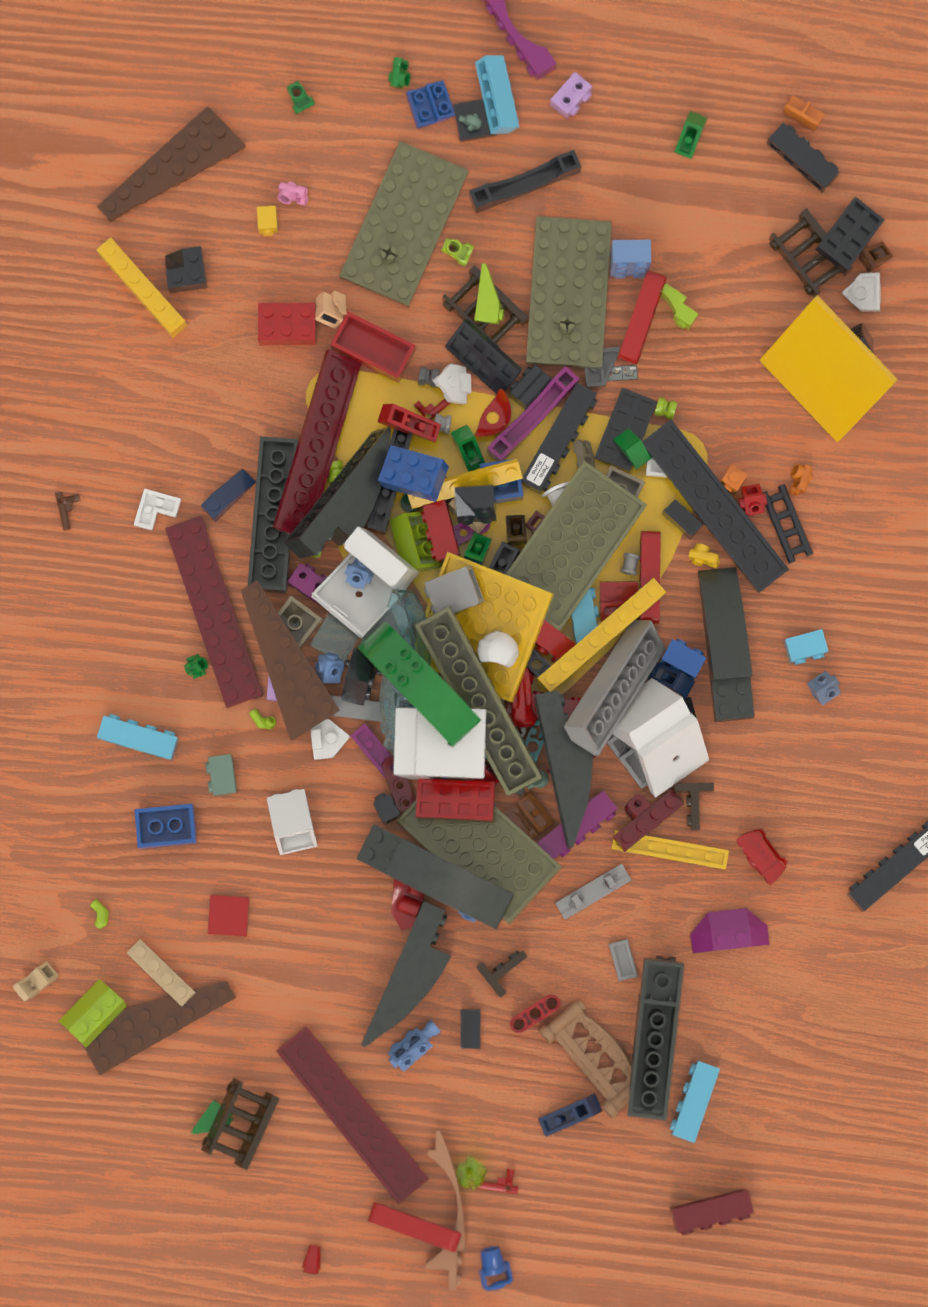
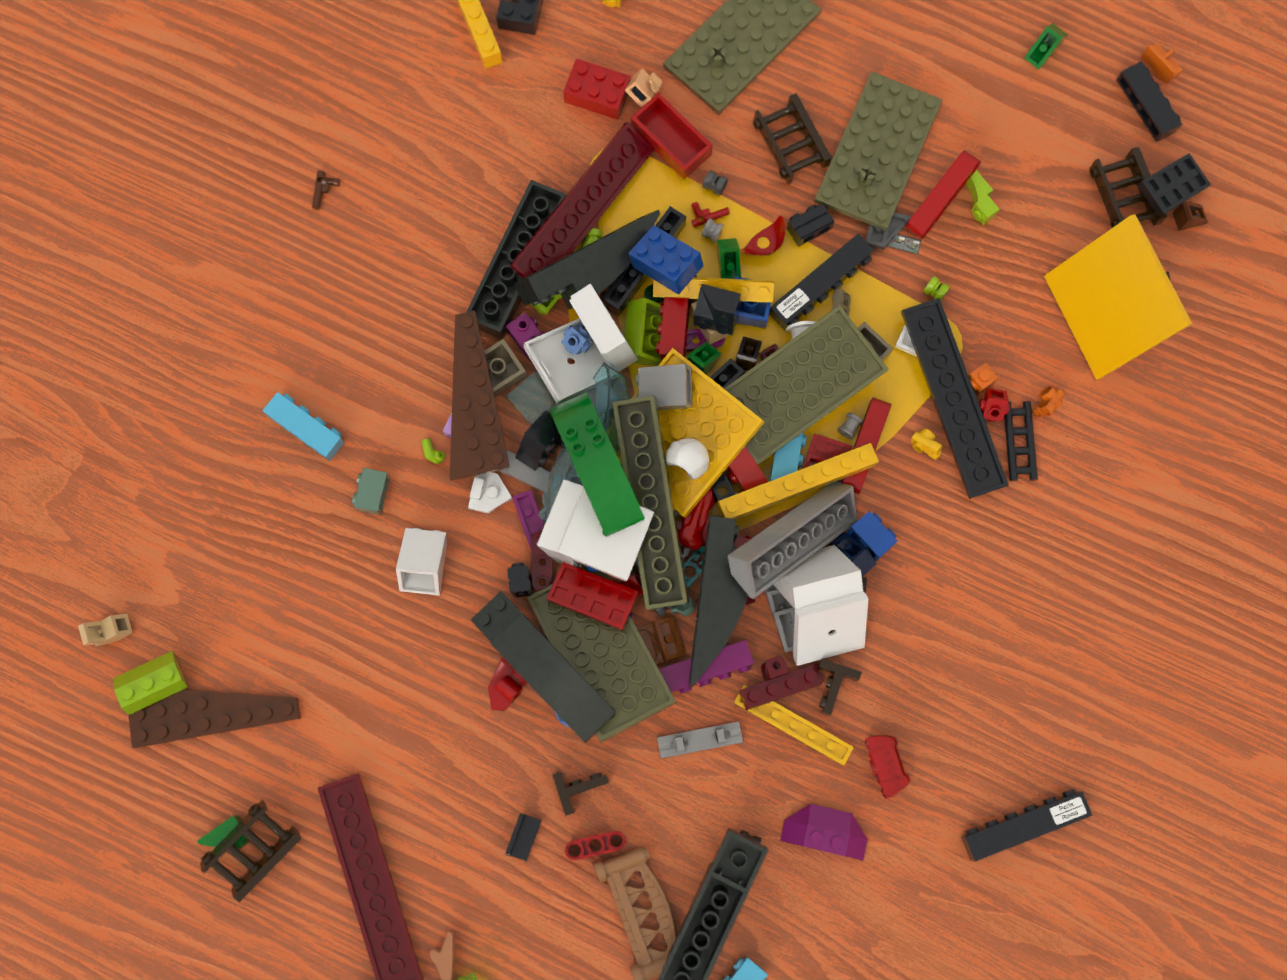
camera: 20 degrees right, 5 degrees down
(102, 914) = (200, 587): lime arm -> none
(151, 505) = (405, 212): white plate -> none
(161, 973) = (234, 666): tan plate -> none
(165, 826) = (295, 521): blue brick -> none
(196, 666) = (386, 377): green gear -> none
(213, 612) = (425, 334): dark red plate -> none
(227, 495) = (479, 227): dark blue slope -> none
(228, 915) = (324, 632): red tile -> none
(329, 668) = (515, 422): medium blue brick -> none
(409, 422) = (679, 212): red slope -> none
(412, 1046) = (456, 834): medium blue brick -> none
(413, 974) = (484, 759): pearl dark grey slope -> none
(454, 383) = (737, 196): white plate -> none
(461, 253) = (788, 80): lime plate -> none
(483, 357) = (774, 180): black plate -> none
(488, 303) = (796, 132): lime slope -> none
(539, 177) = (901, 35): black arch -> none
(542, 406) = (832, 237): magenta arch -> none
(570, 1115) = (594, 966): dark blue slope -> none
(623, 960) = (706, 822): light grey tile -> none
(630, 258) = (950, 133): medium blue brick -> none
(630, 412) = (890, 295): black plate -> none
(632, 448) = (891, 315): green slope -> none
(682, 519) = (916, 400): black panel -> none
(726, 645) = (920, 540): pearl dark grey slope -> none
(806, 646) = (1001, 567): medium azure brick -> none
(824, 687) = (1006, 615): sand blue brick -> none
(865, 292) = (1171, 245): white plate -> none

